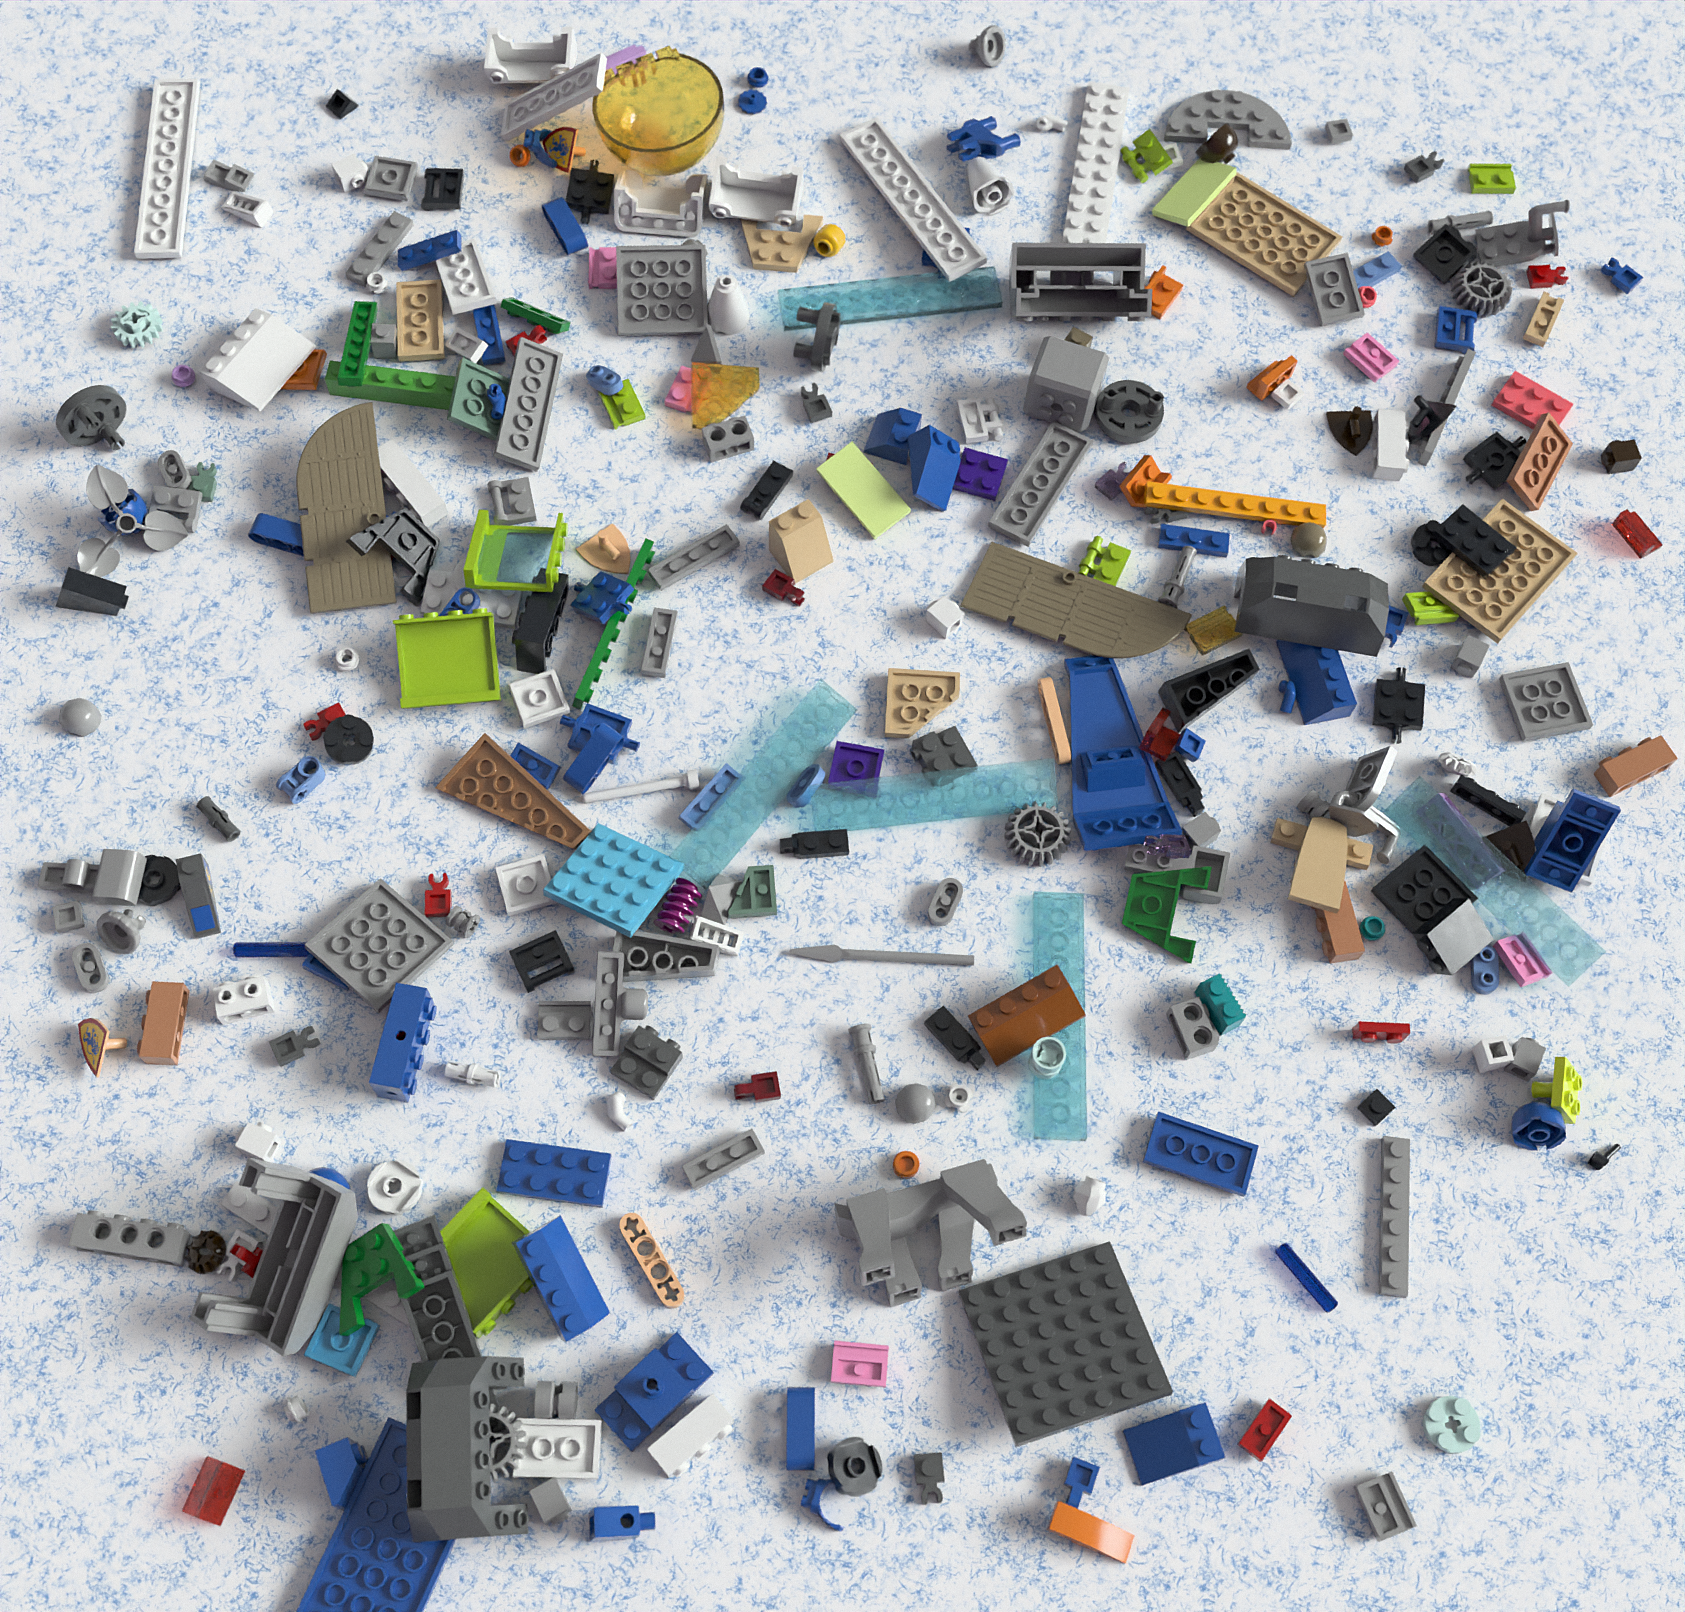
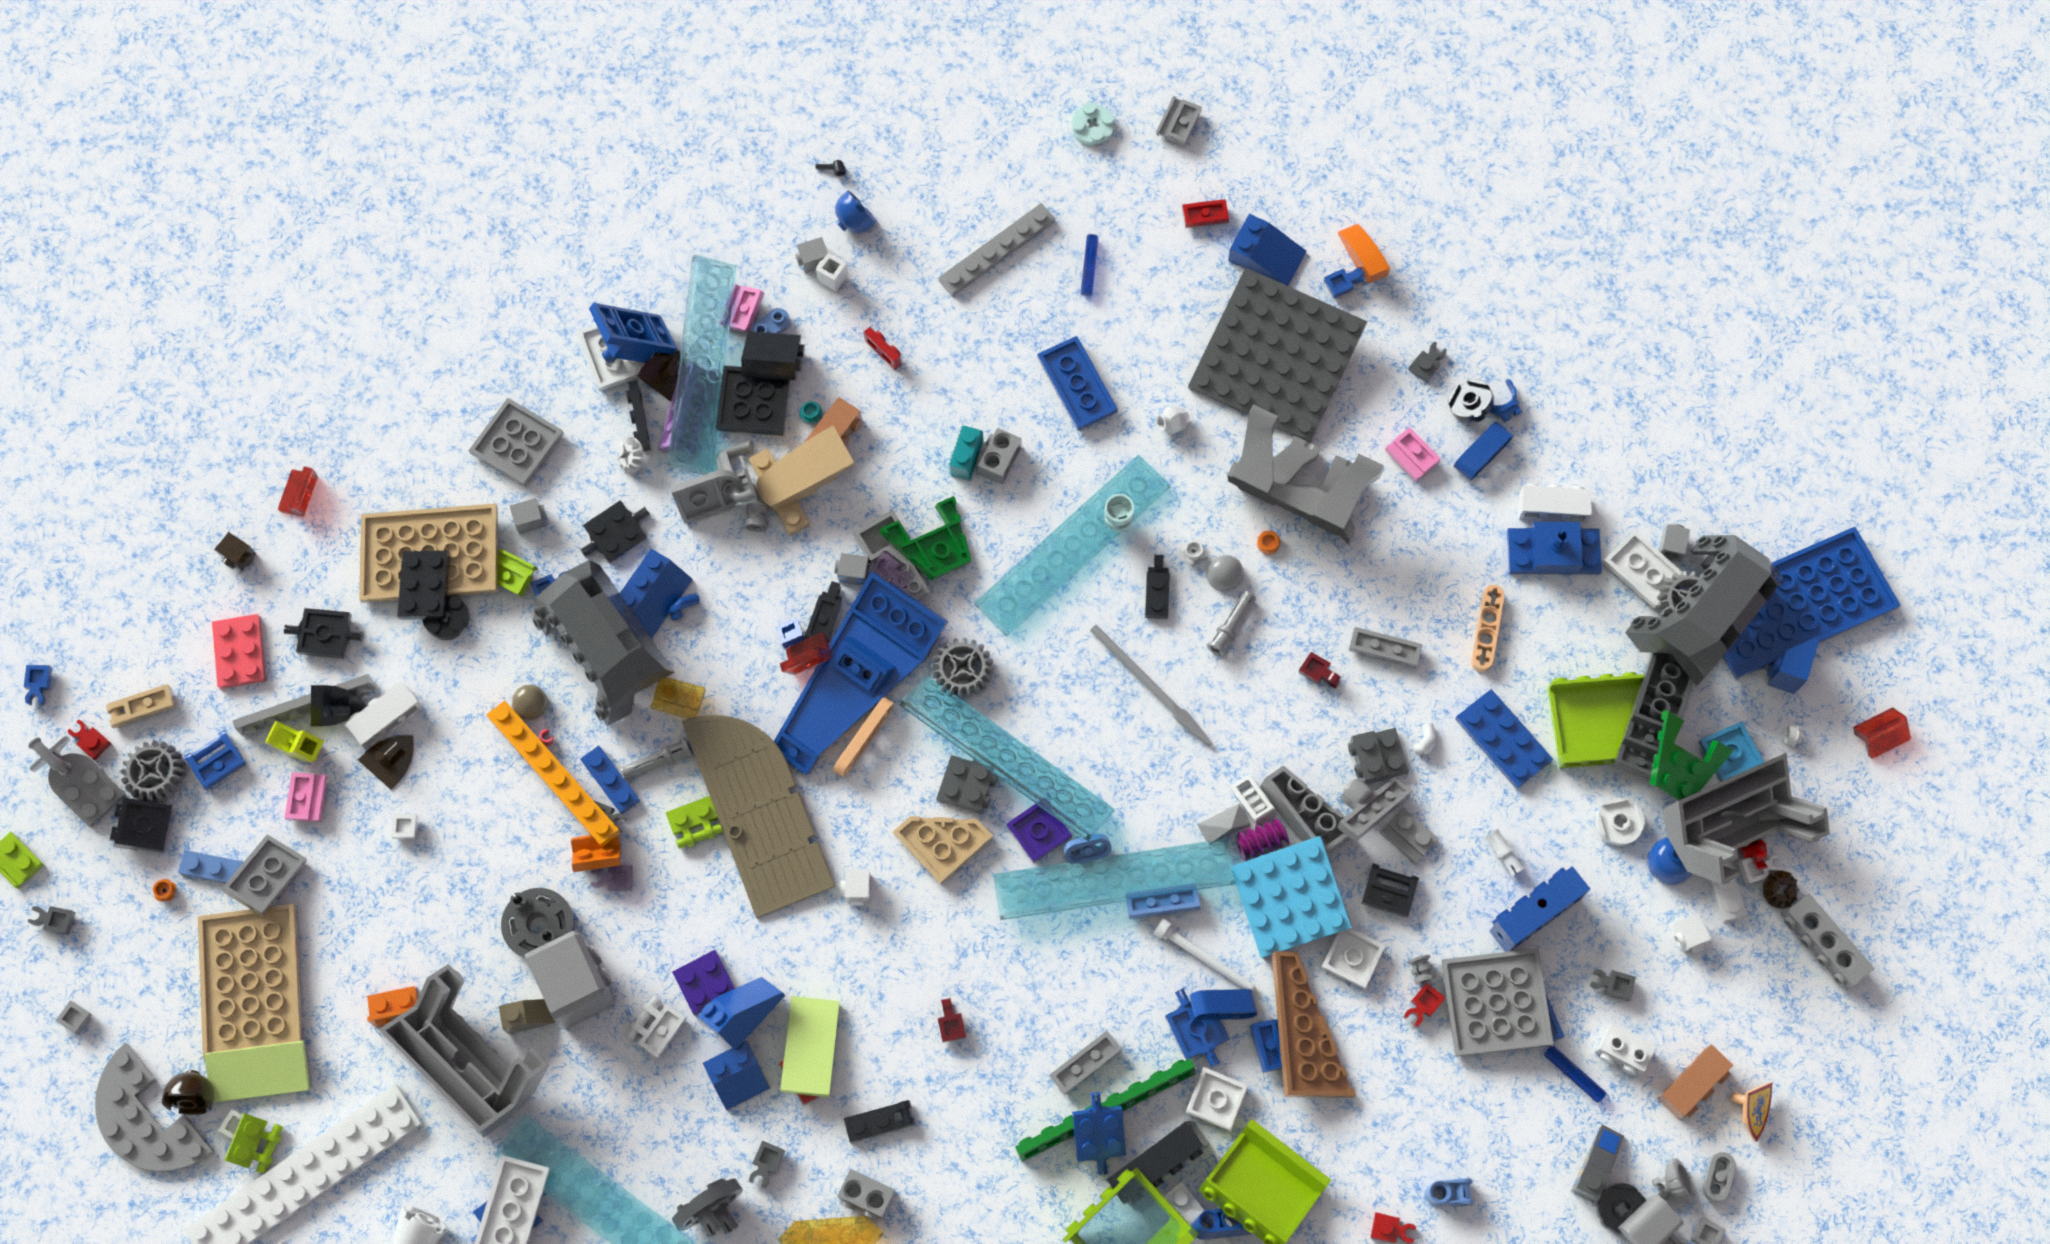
camera: 130 degrees left, 5 degrees up
(218, 818) = (1537, 1217): dark grey pin -> none
(350, 753) = (1396, 1182): black plate -> none
(556, 1400) = (1629, 599): light grey wheel -> none
(561, 1279) = (1560, 658): blue slope -> none
(606, 1525) = (1644, 492): blue torso -> none
(607, 551) = (1050, 1185): light nougat shield -> none
(693, 557) = (992, 1112): light grey plate -> none
(755, 894) = (1197, 804): sand green wing -> none
(800, 541) = (905, 1042): tan slope -> none
(816, 844) = (1123, 804): black hinge -> none
(943, 903) = (1072, 679): light grey plate -> none
(1026, 1015) = (1101, 554): dark orange slope -> none
(1040, 483) = (669, 928): light grey plate -> none
(1206, 687) = (734, 658): black wedge -> none
(1272, 377) = (401, 849): orange bracket -> none
(1368, 293) = (242, 846): coral plate -> none
(1376, 1107) = (936, 313): black plate -> none
(1418, 379) = (294, 743): none -> neon yellow brick
(1462, 221) = (93, 845): light grey pin -> none
(1539, 462) = (299, 598): nougat plate -> none
(1562, 1090) = (816, 216): neon yellow plate -> none
(1634, 765) = (514, 349): nougat brick -> none

